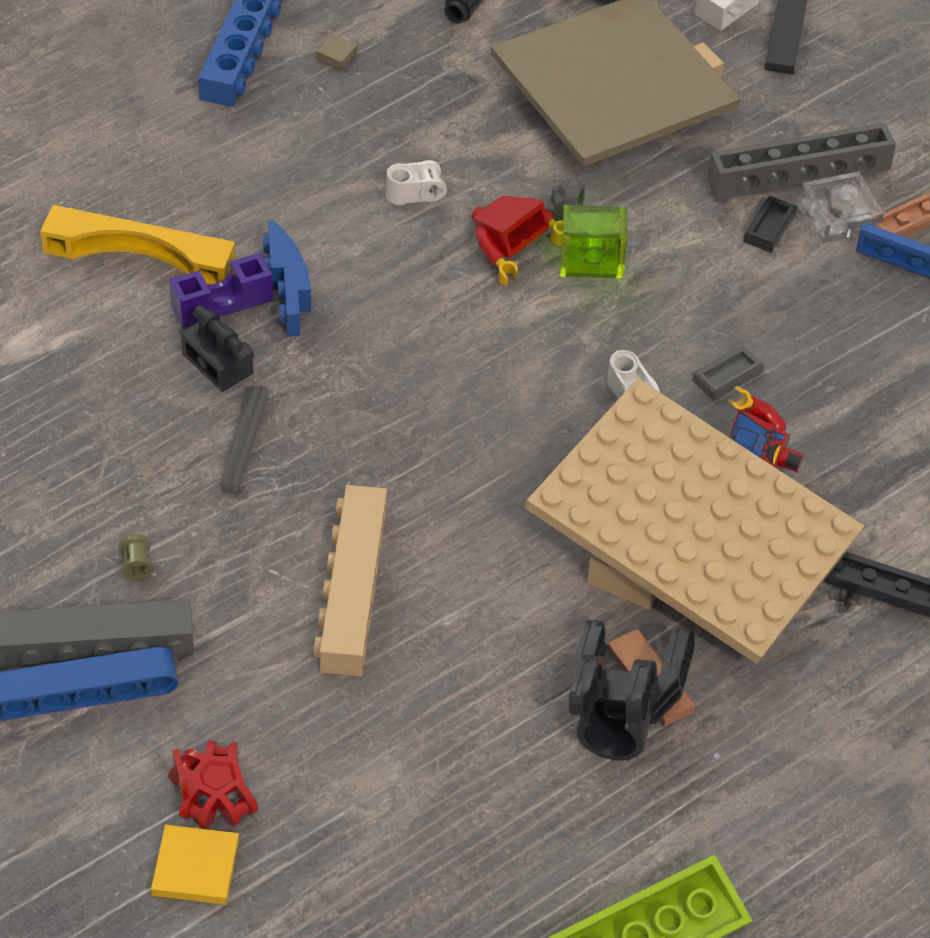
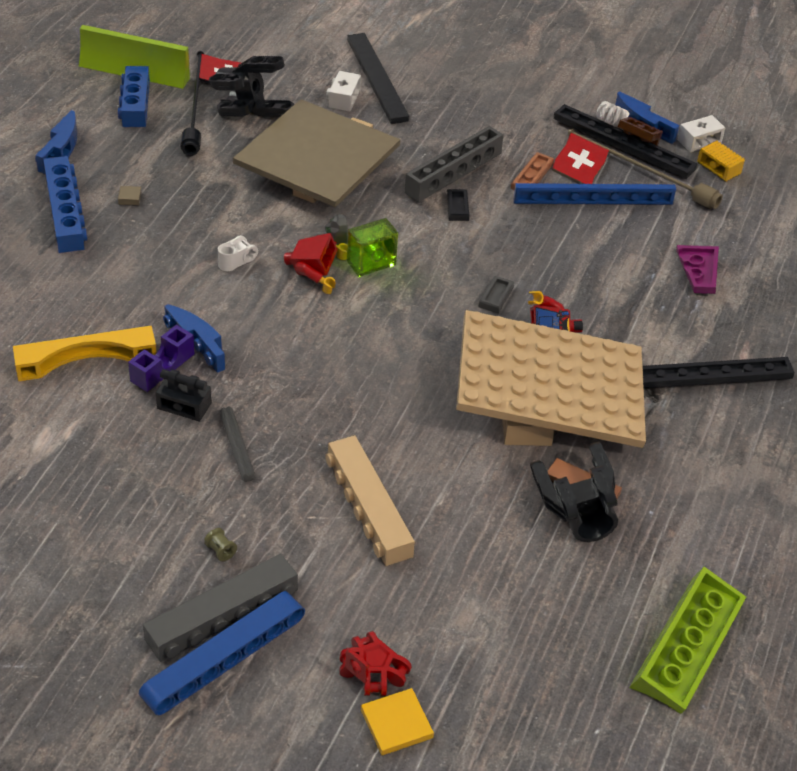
camera: 30 degrees left, 5 degrees down
(624, 371) = (446, 319): white piece -> none
(838, 206) = (491, 181): clear plate -> none

